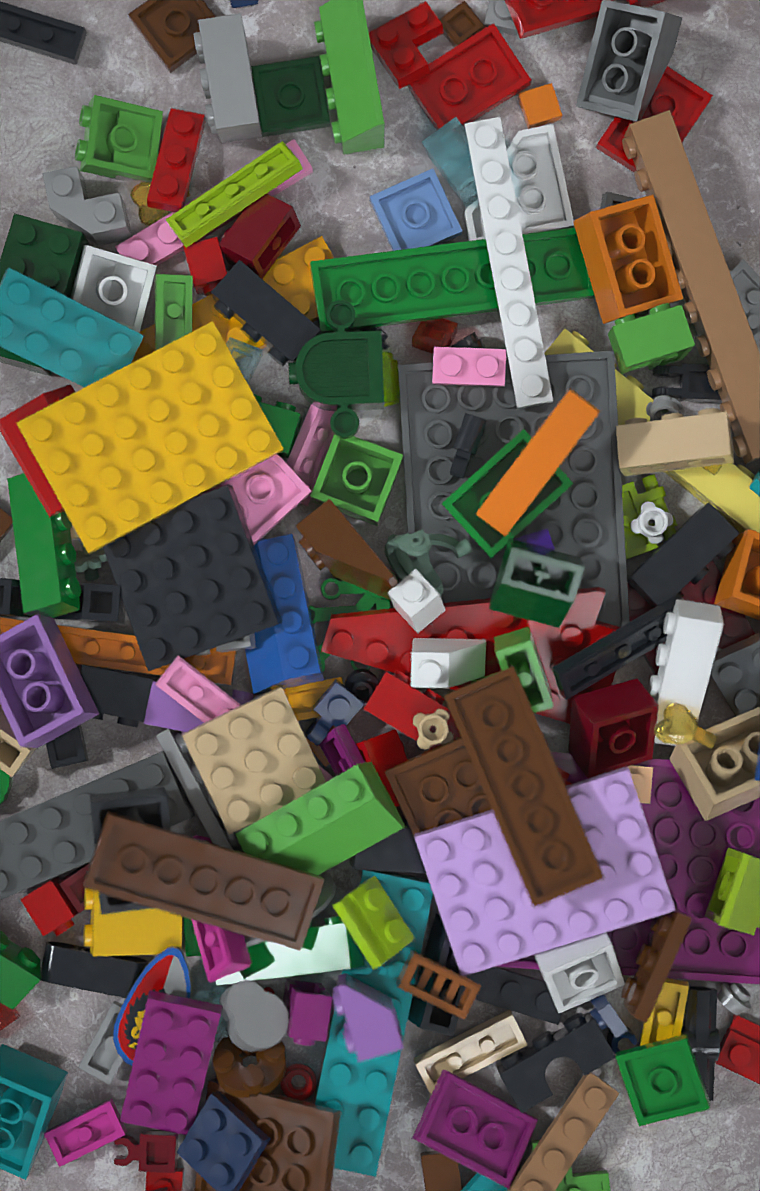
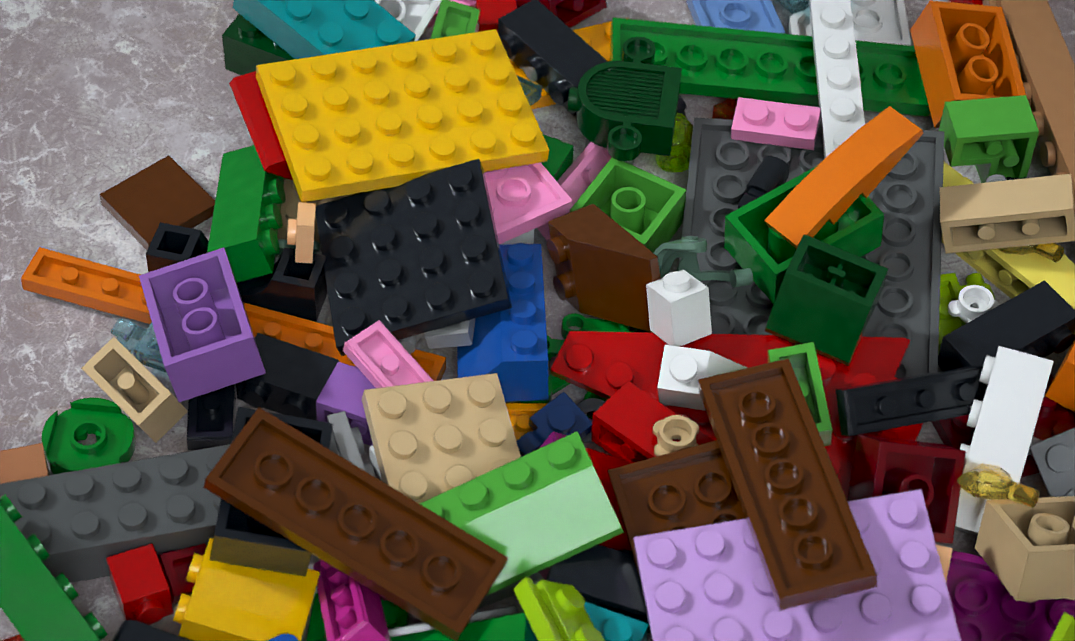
camera: 10 degrees right, 35 degrees down
(96, 577) = (302, 232): none -> light nougat plate

